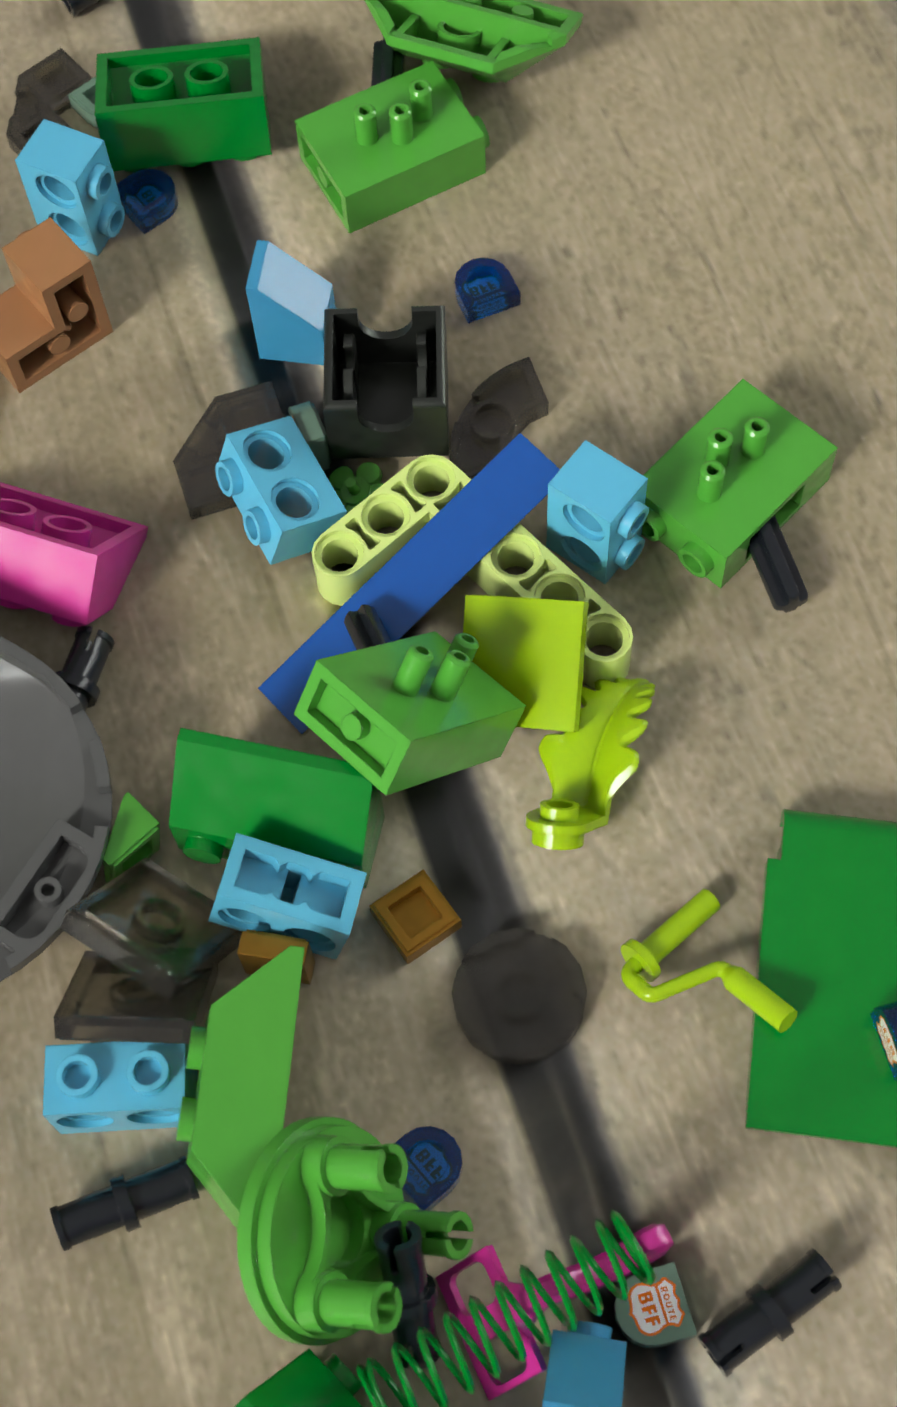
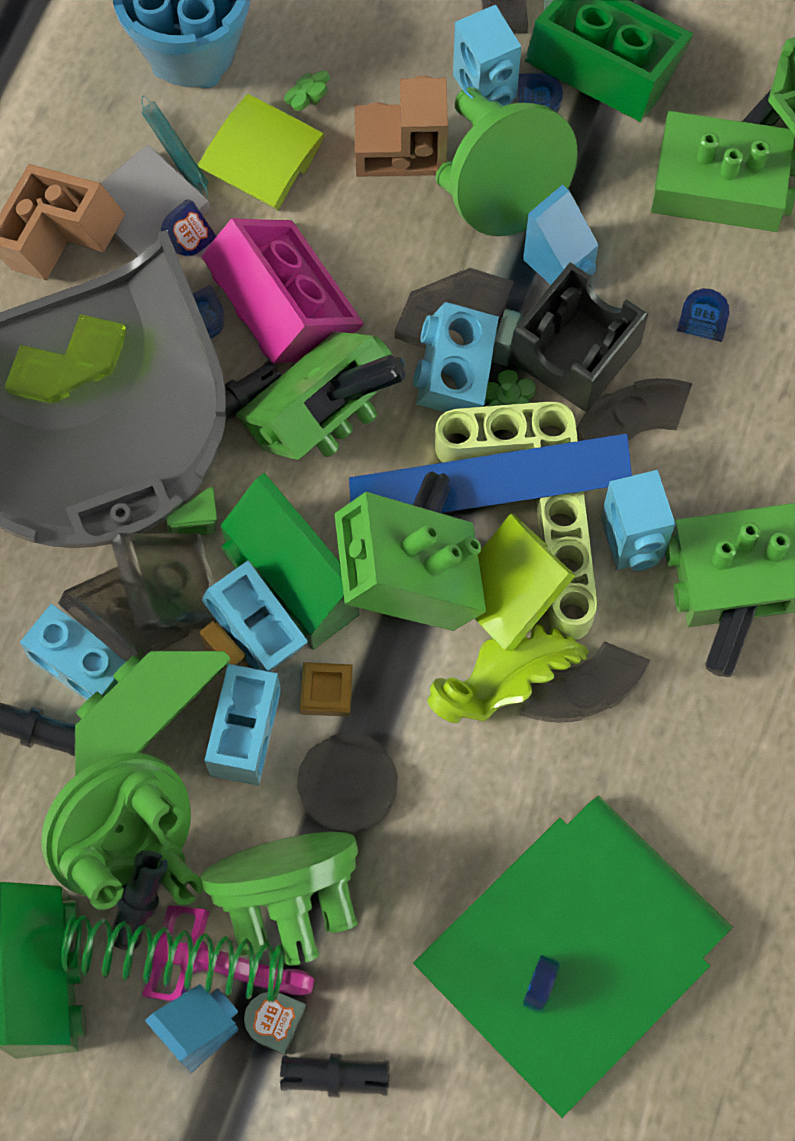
camera: 35 degrees right, 5 degrees up
(168, 615) = (321, 395): none -> bright green piece
(179, 265) = (507, 162): none -> bright green piece
(365, 1015) = (243, 724): none -> medium azure brick
(432, 1165) = (212, 837): clear blue tile -> none
(555, 1131) = (283, 879): none -> bright green piece
(644, 957) = (459, 818): lime piece -> none
(679, 714) = (586, 688): none -> clear smoke tile

